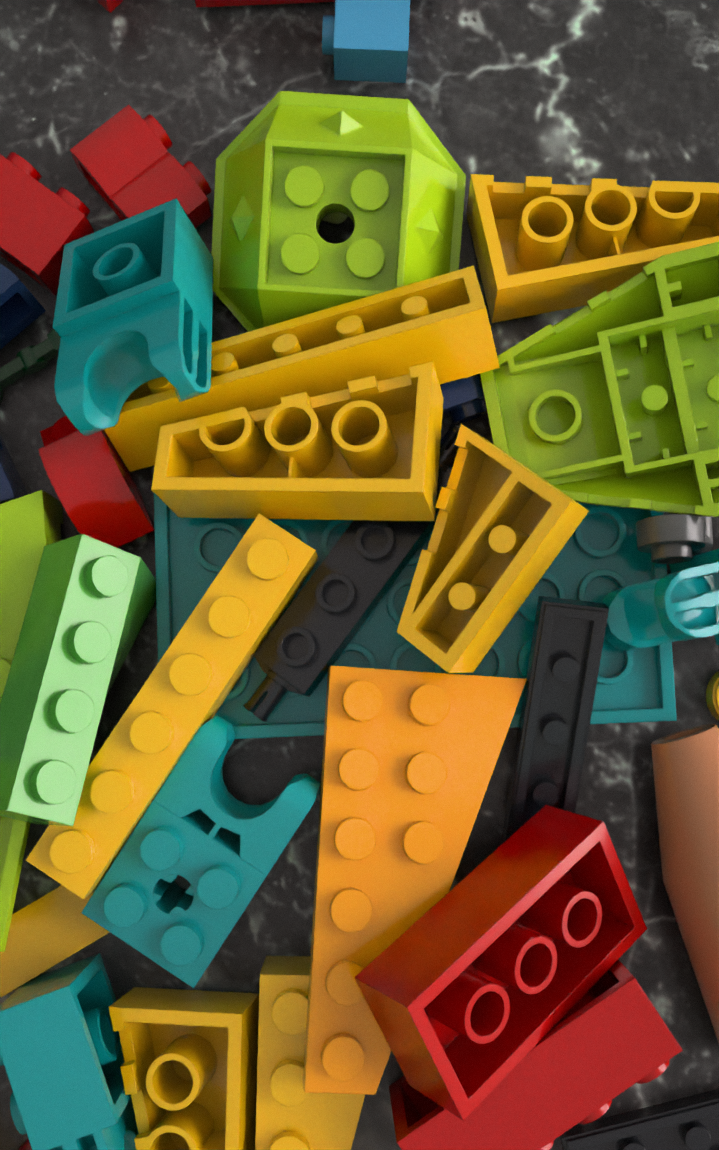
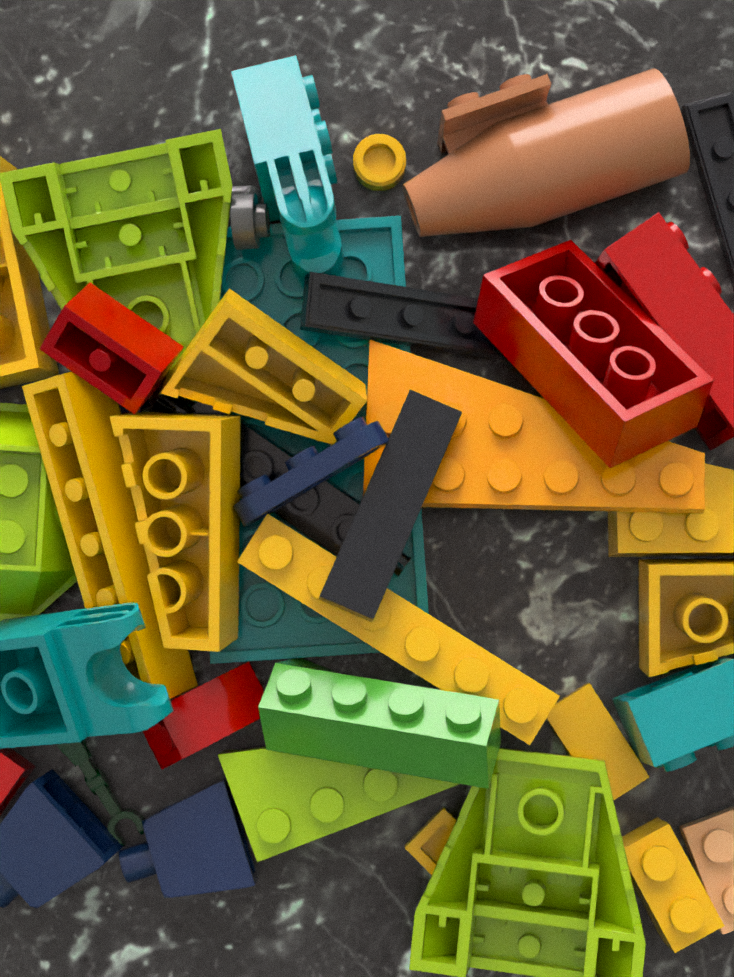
camera: 90 degrees left, 0 degrees up
(211, 842) = (513, 595): teal brick -> none
(319, 699) = (390, 506): none -> black tile
(366, 602) = (309, 470): none -> dark blue plate
(518, 367) = (111, 347): none -> red brick

